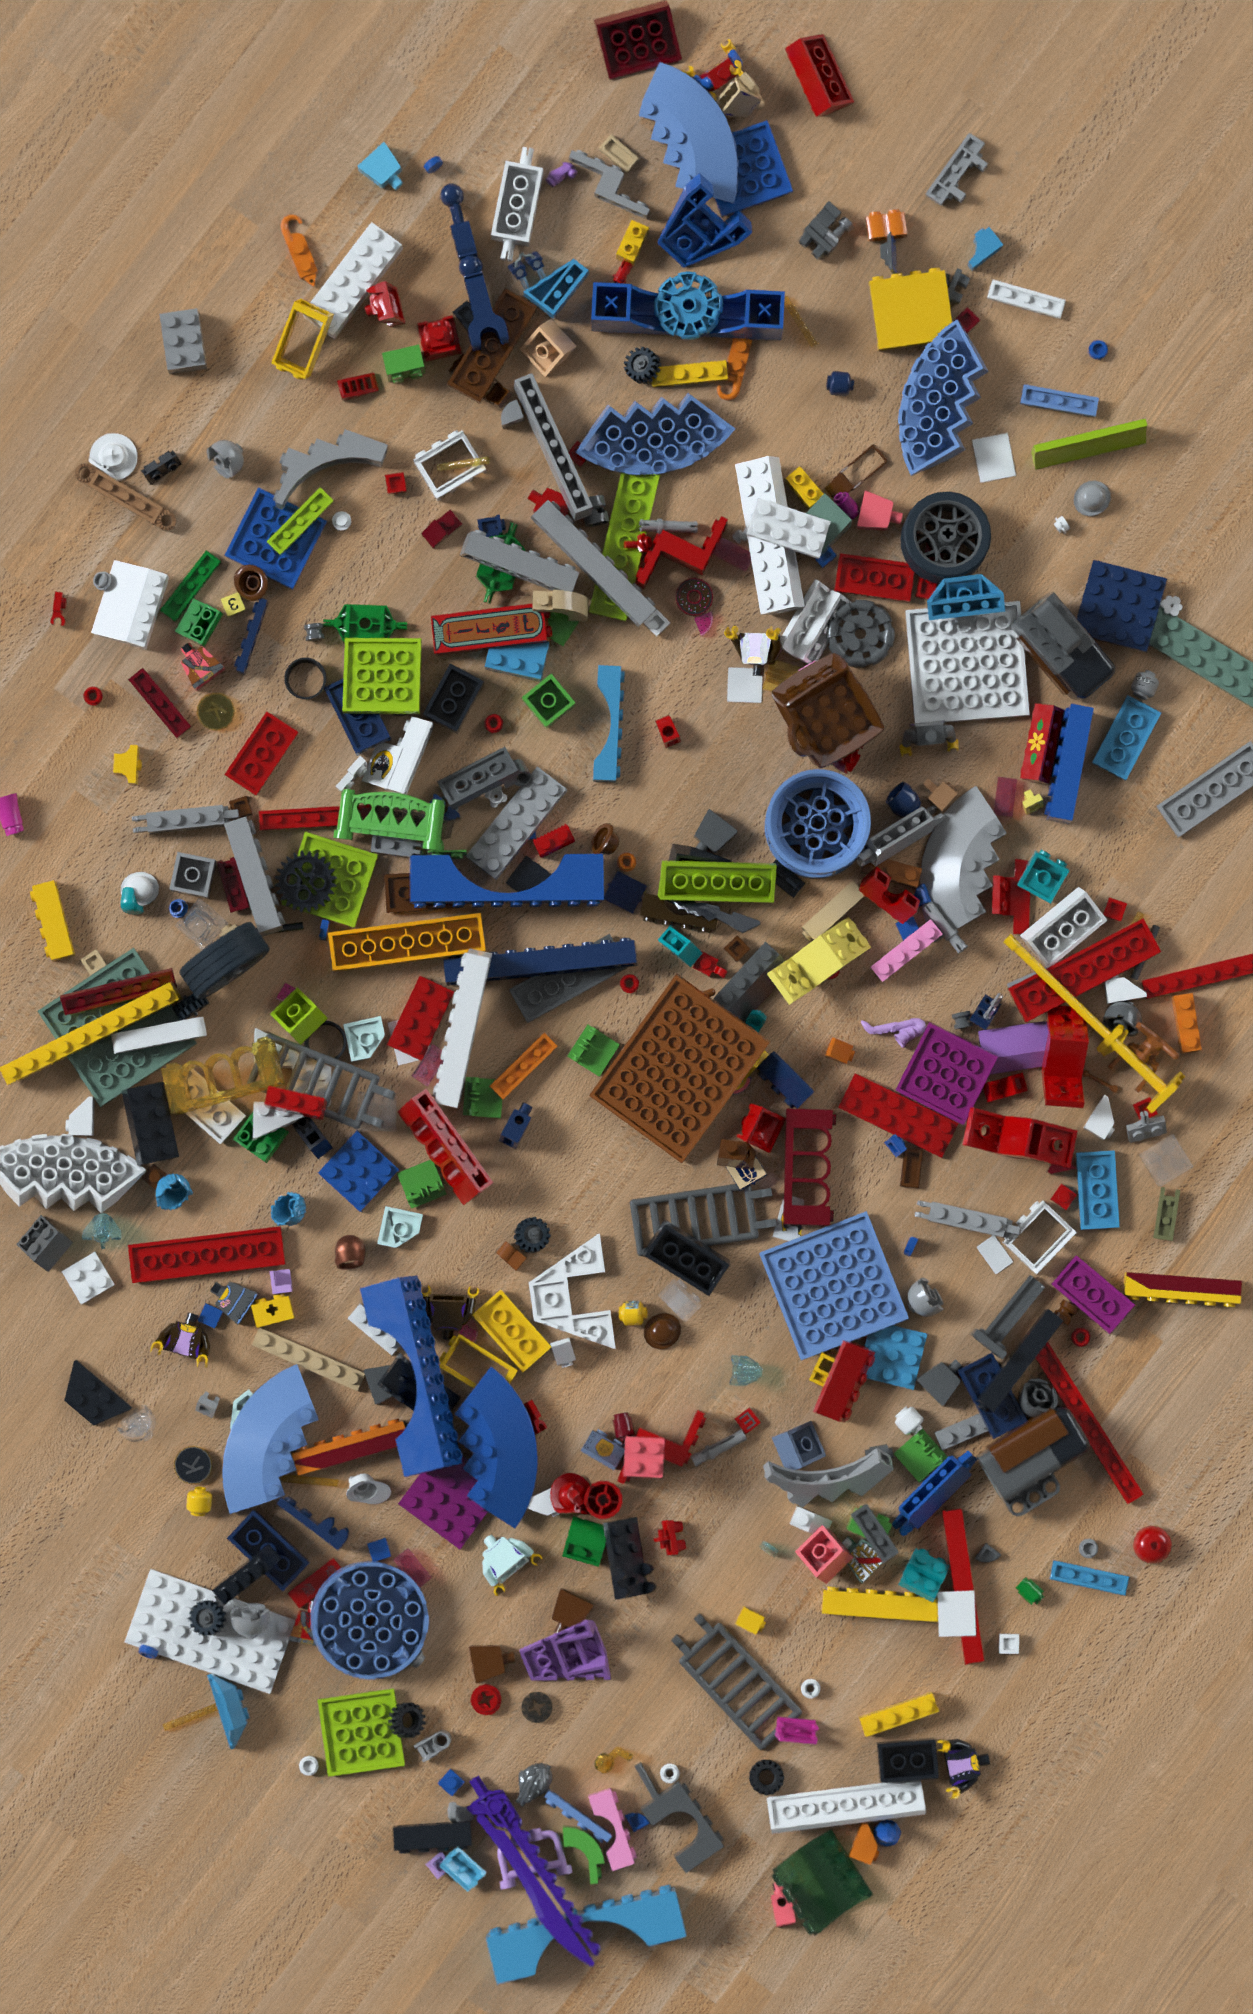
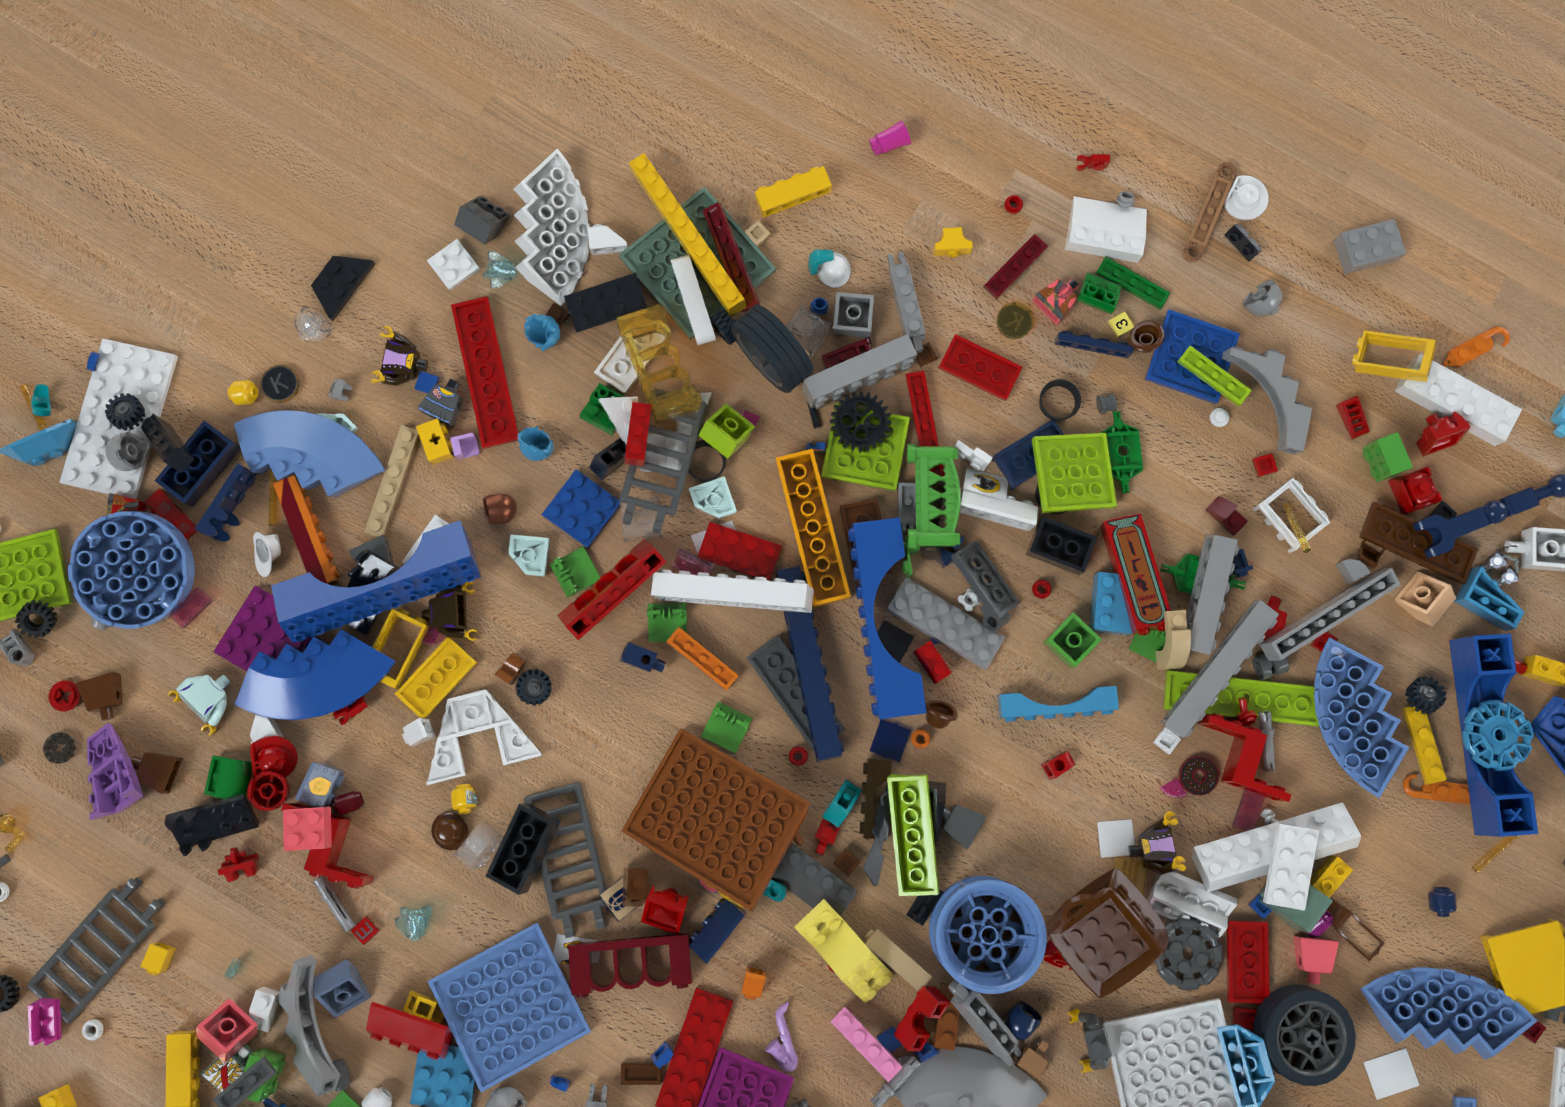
camera: 80 degrees right, 5 degrees down
(185, 1708) = (40, 401): none -> teal hair
(379, 1549) = (209, 572): blue tile -> none

